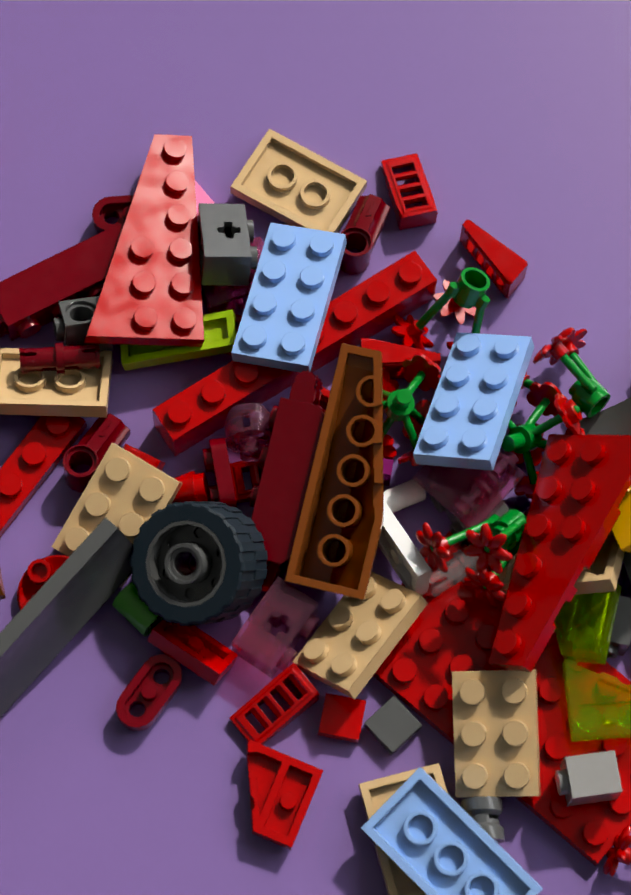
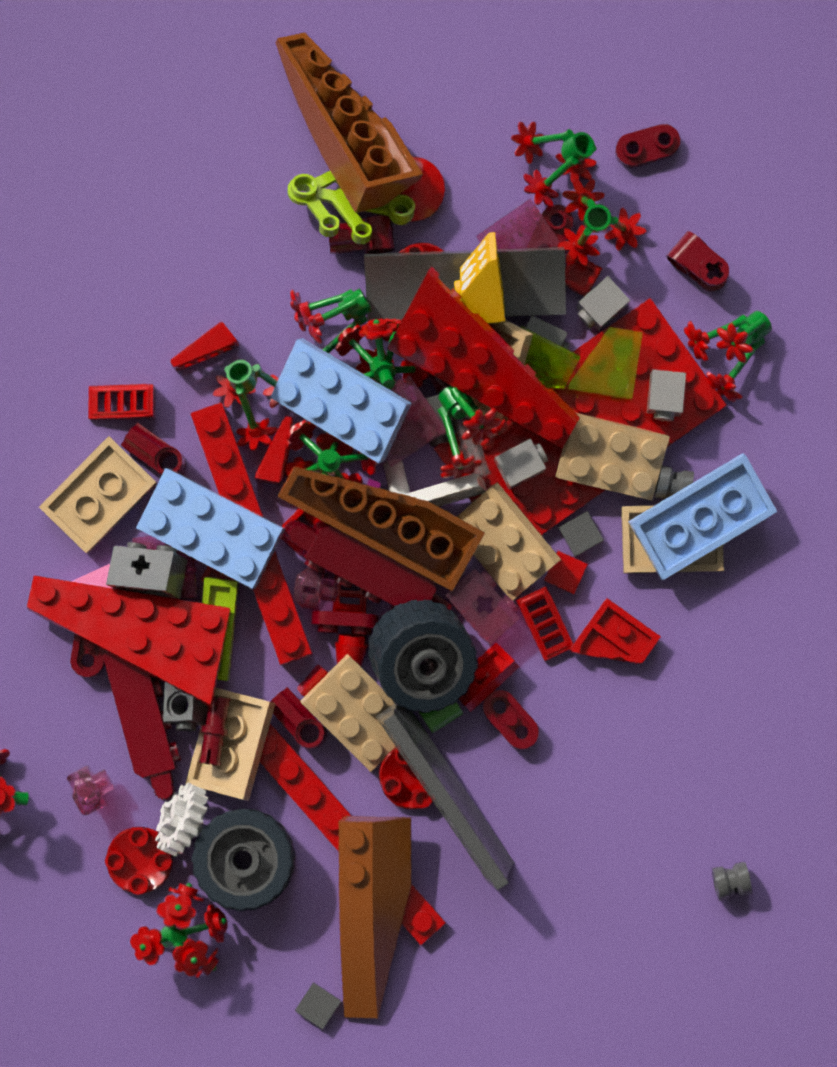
camera: 75 degrees left, 15 degrees up
(457, 626) = (521, 463): none -> light grey brick

